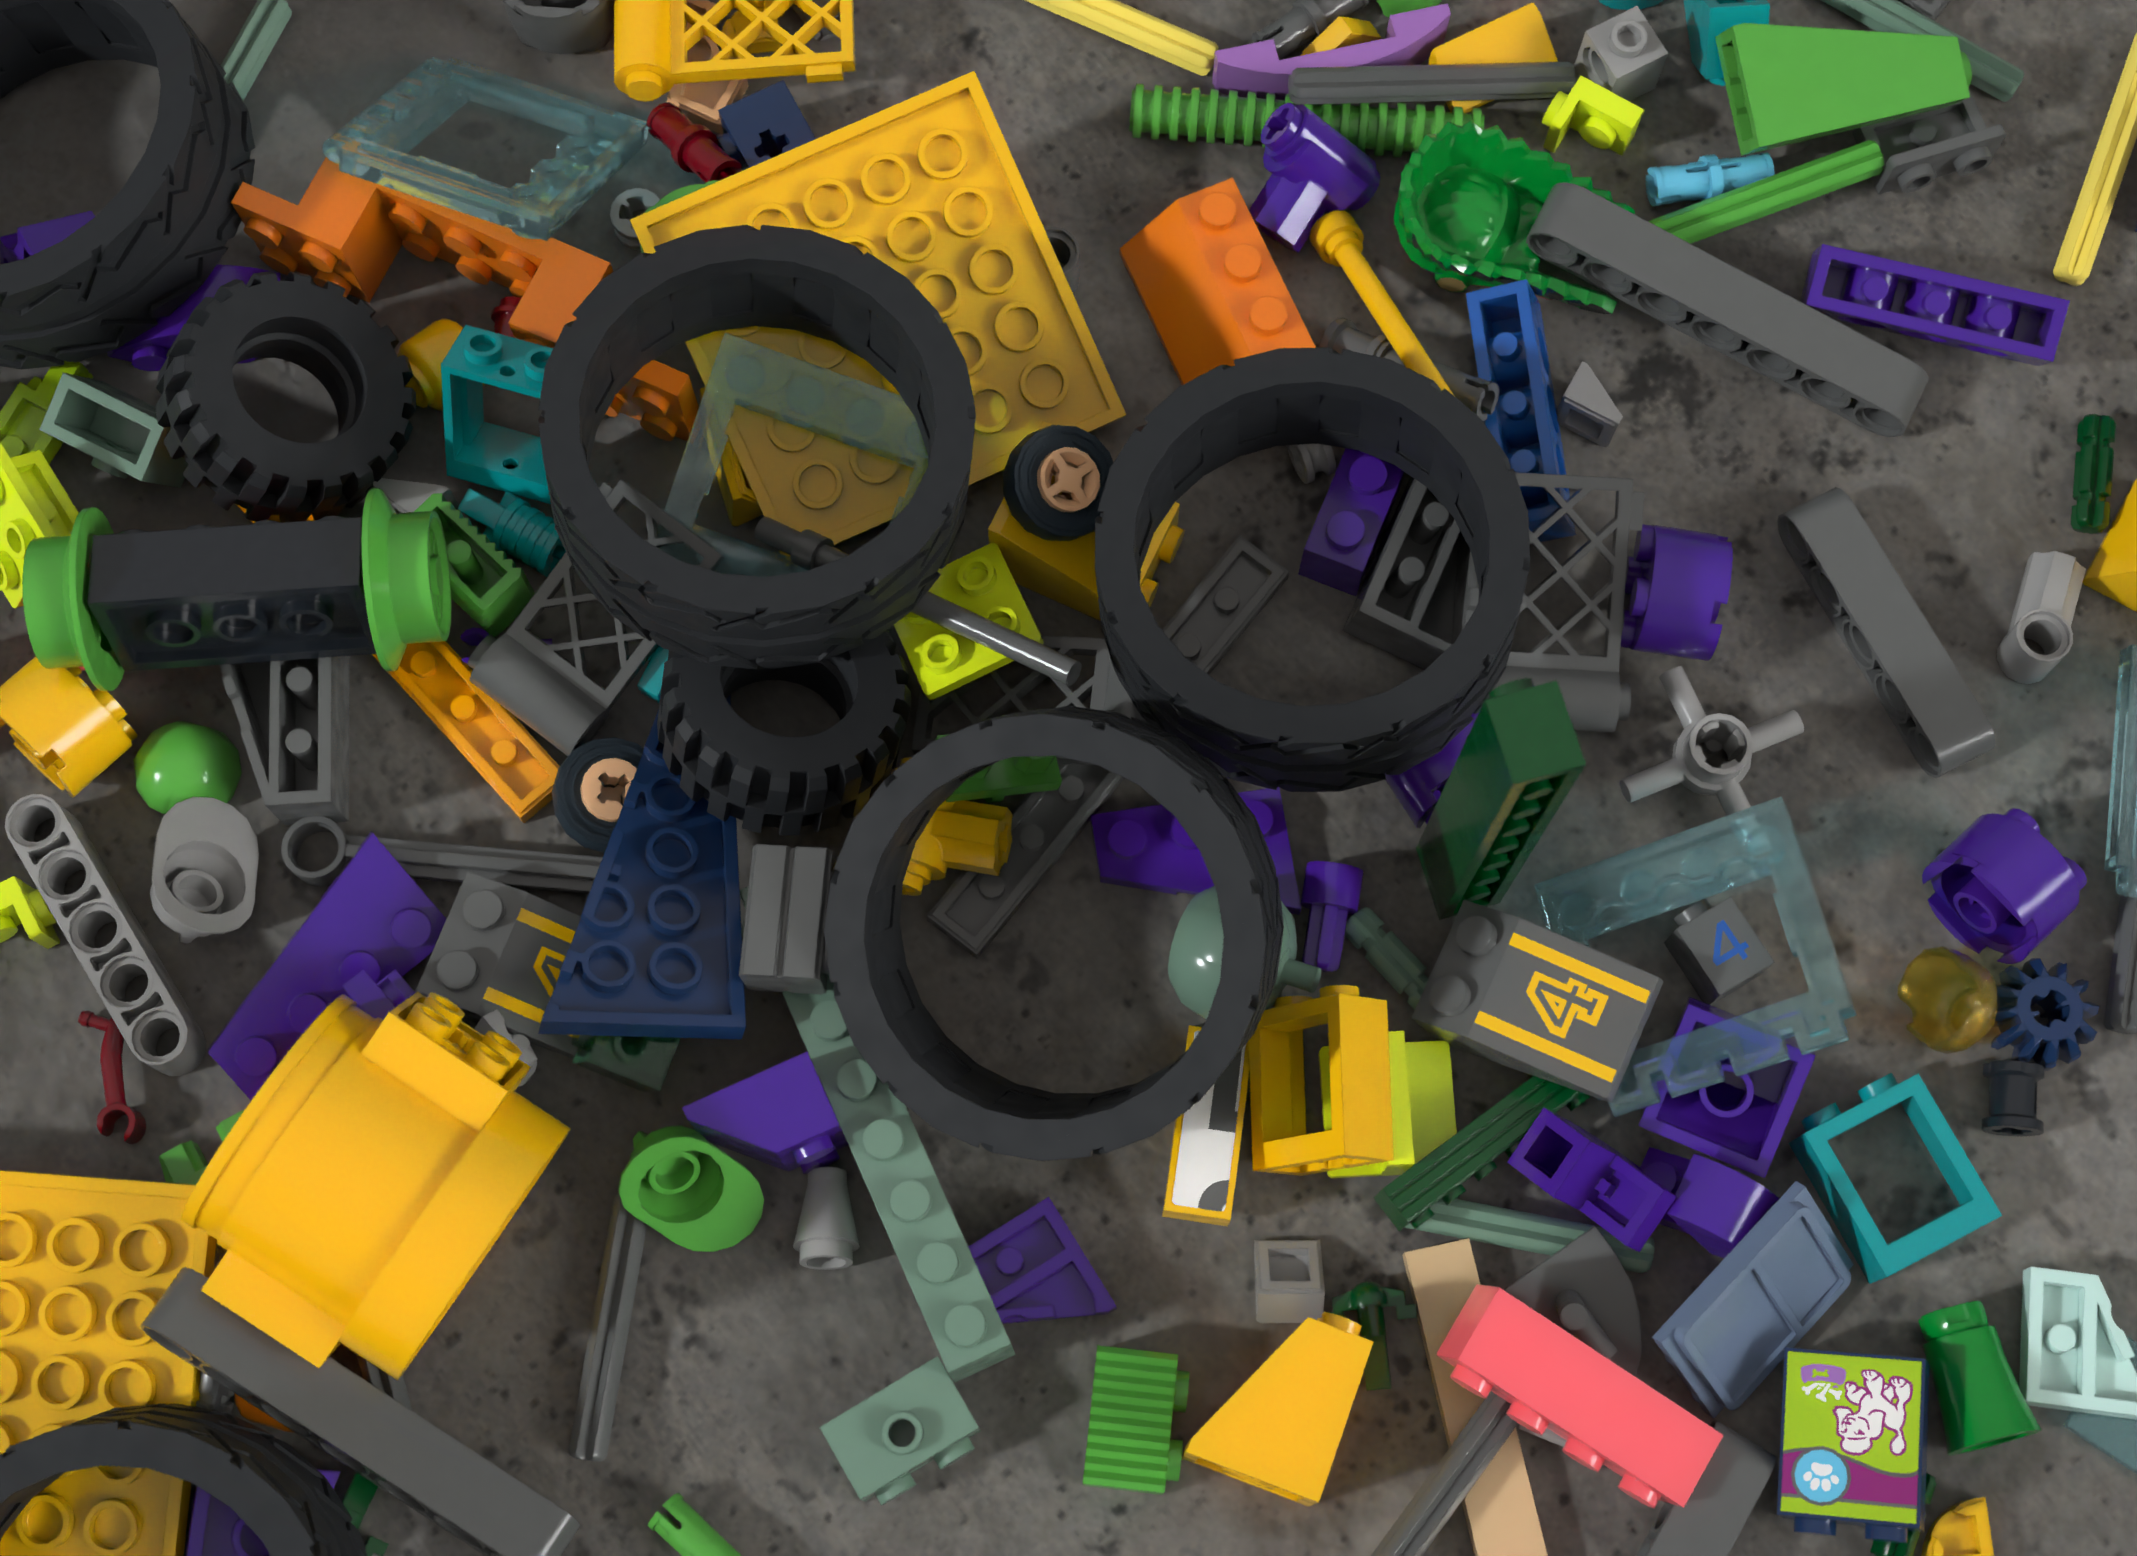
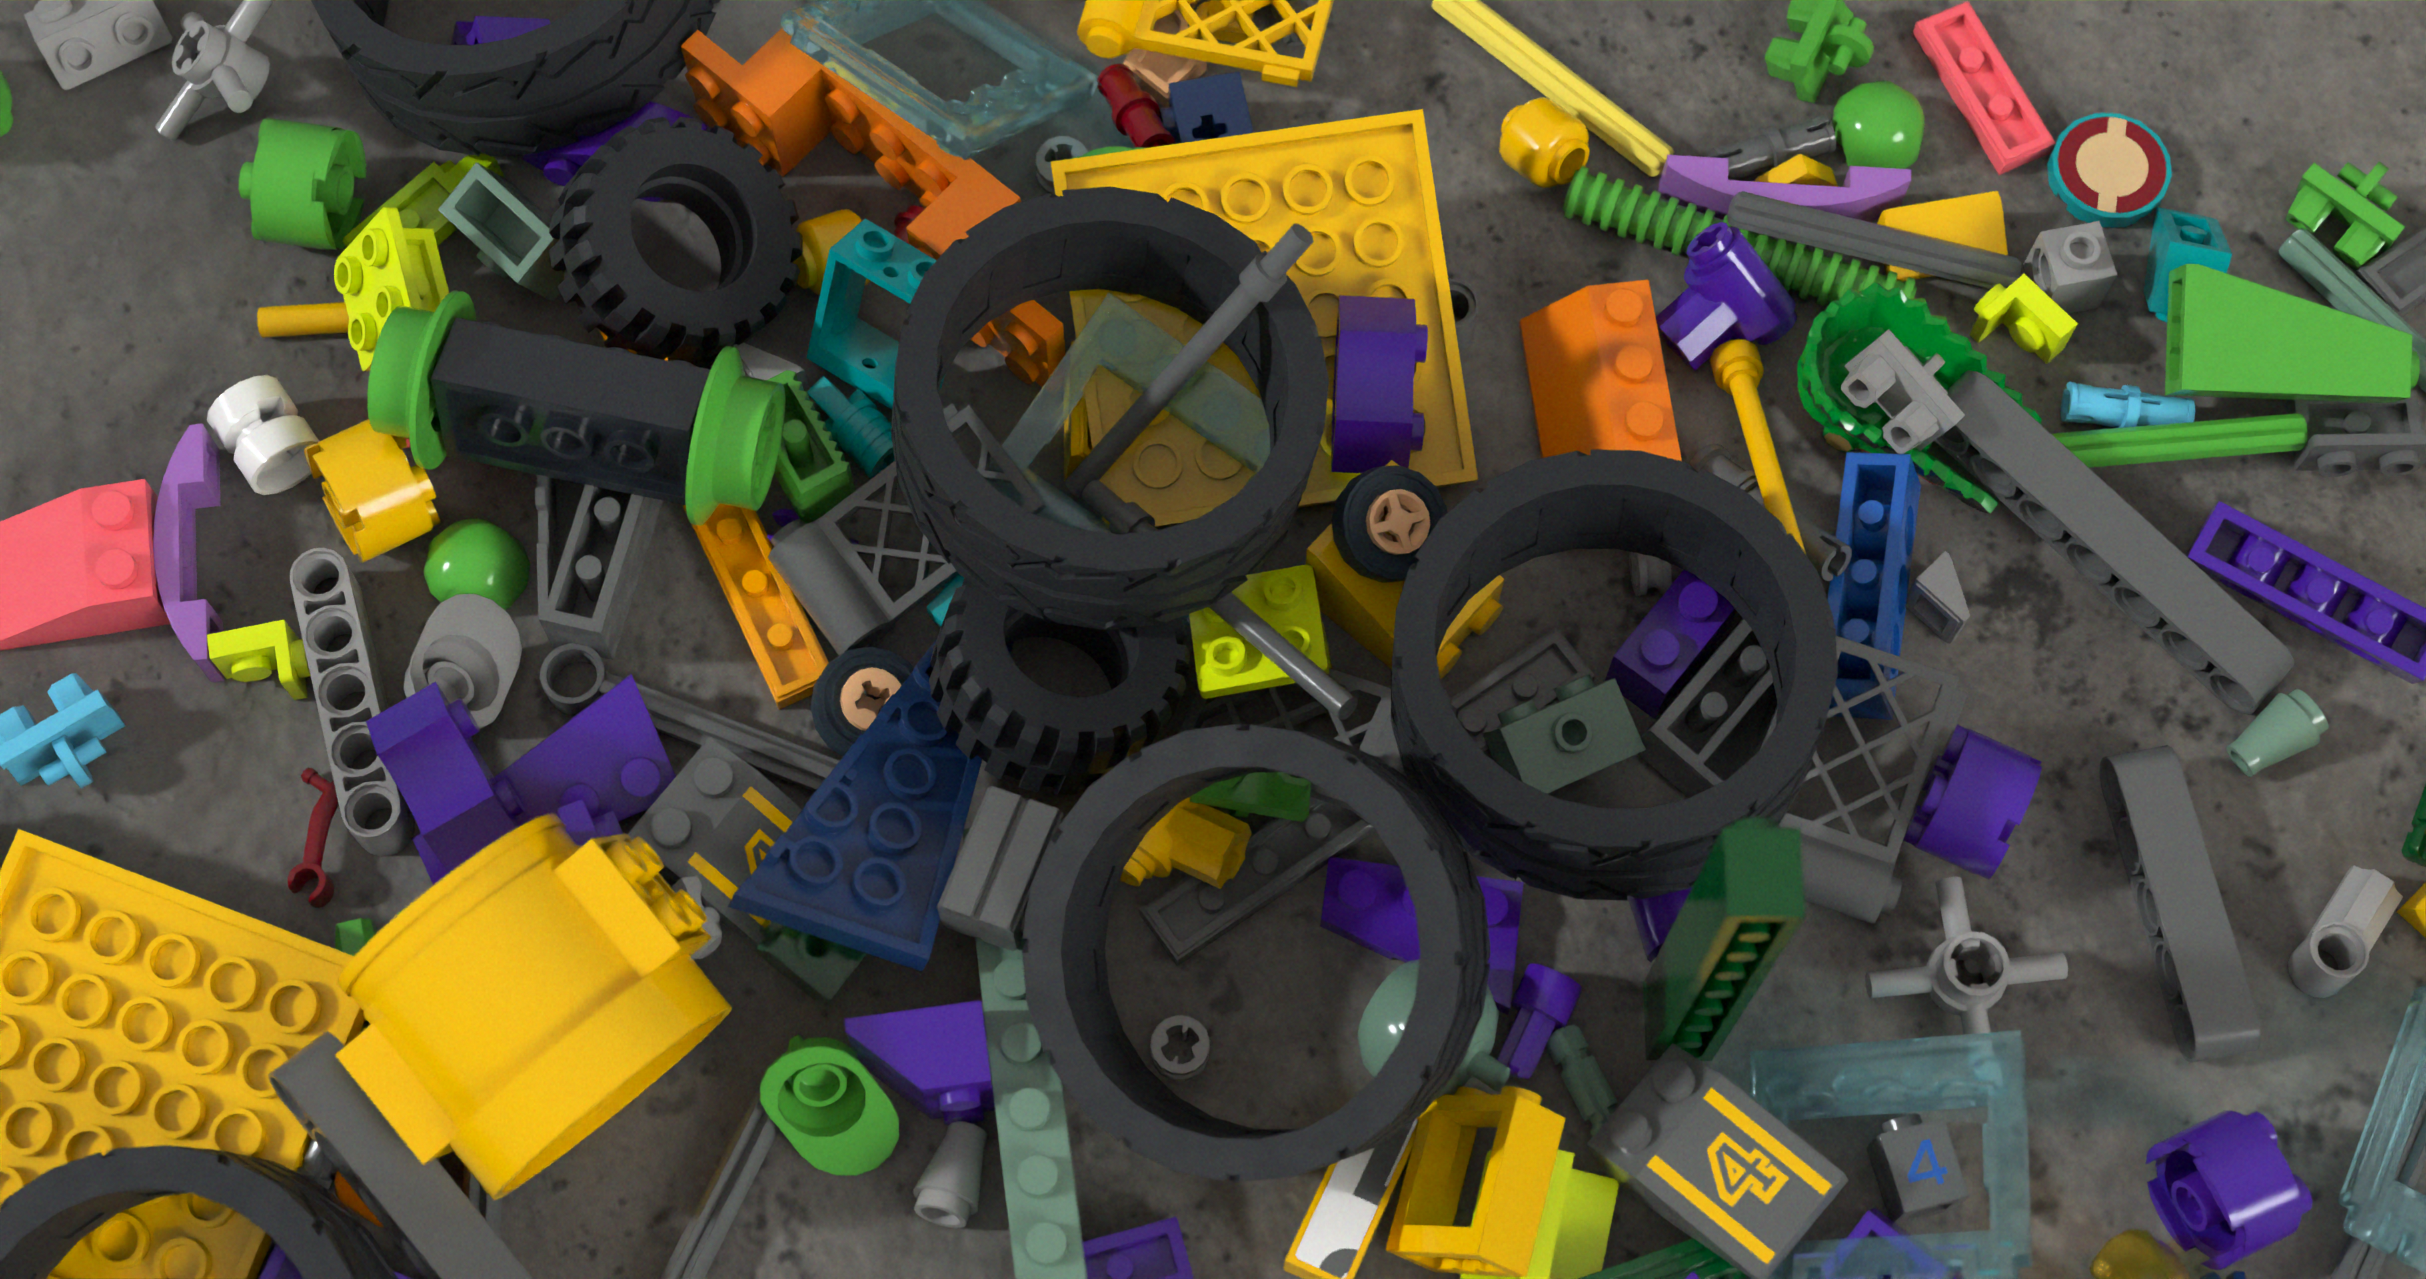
camera: 15 degrees right, 5 degrees down
(223, 987) = (444, 775): none -> dark purple brick
(871, 287) = (1258, 283): none -> dark grey bar
(984, 1037) = (1199, 1051): none -> light grey bush
(1004, 350) = (1375, 383): none -> dark purple brick
(1093, 70) = (1544, 142): none -> yellow head
(1279, 639) = (1567, 738): none -> sand green brick
(1503, 218) = (1904, 390): none -> light grey hips
(1932, 445) = (2279, 732): none -> sand green cone

